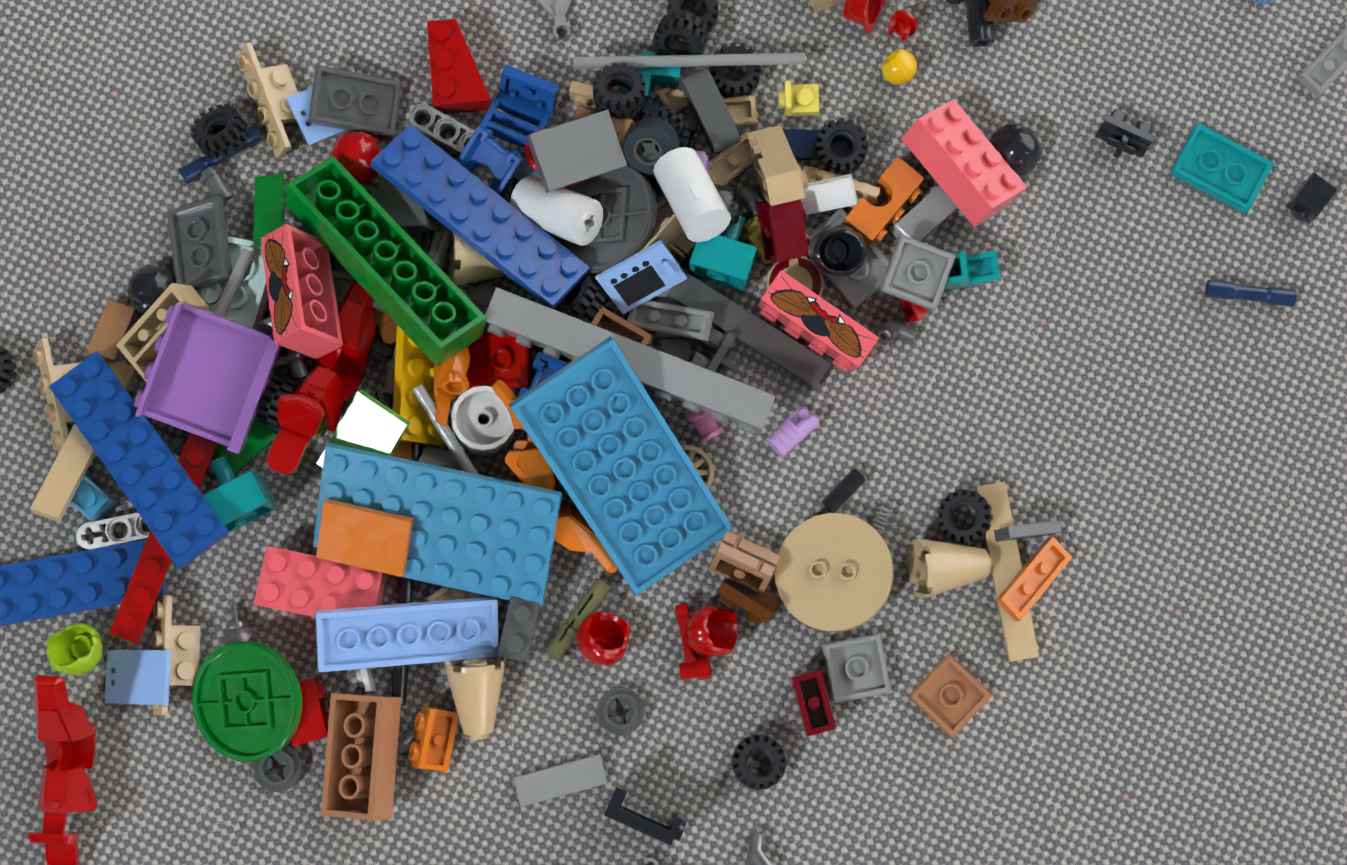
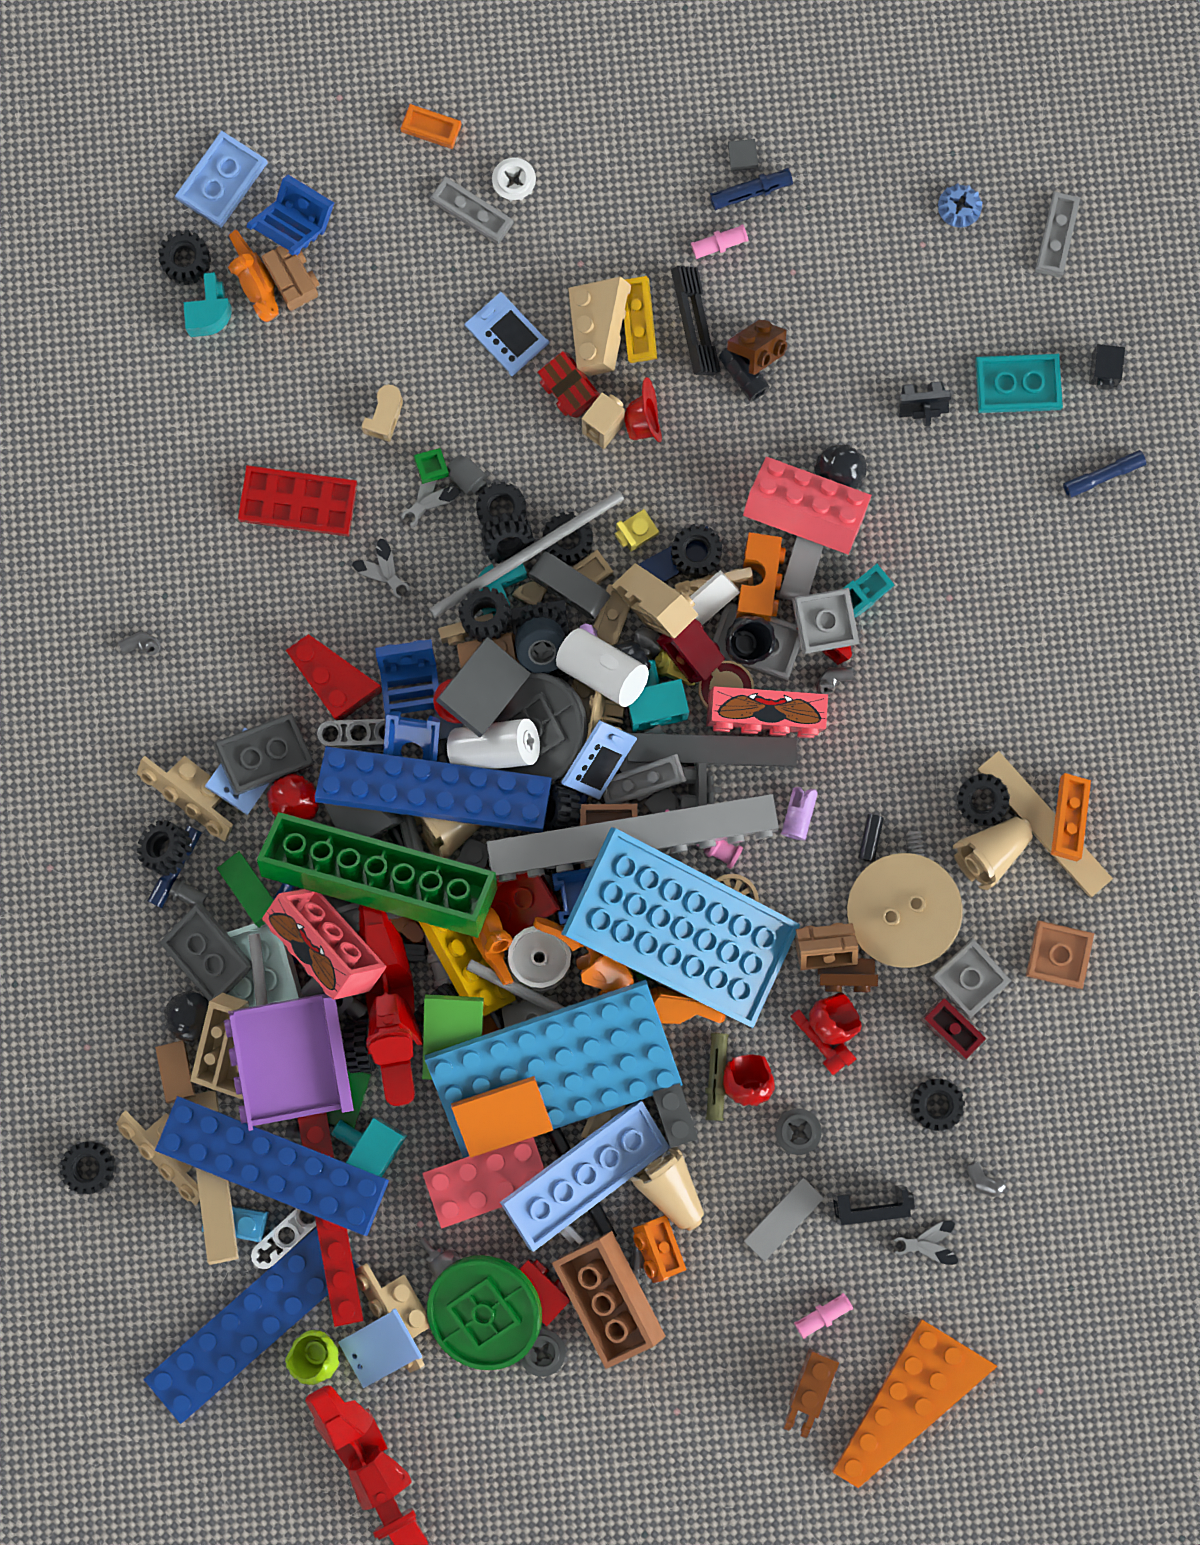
camera: 30 degrees left, 0 degrees up
(899, 67) = (703, 455): yellow piece -> none
(903, 24) = (684, 416): red plate -> none
(1027, 531) = (1043, 780): tile -> none

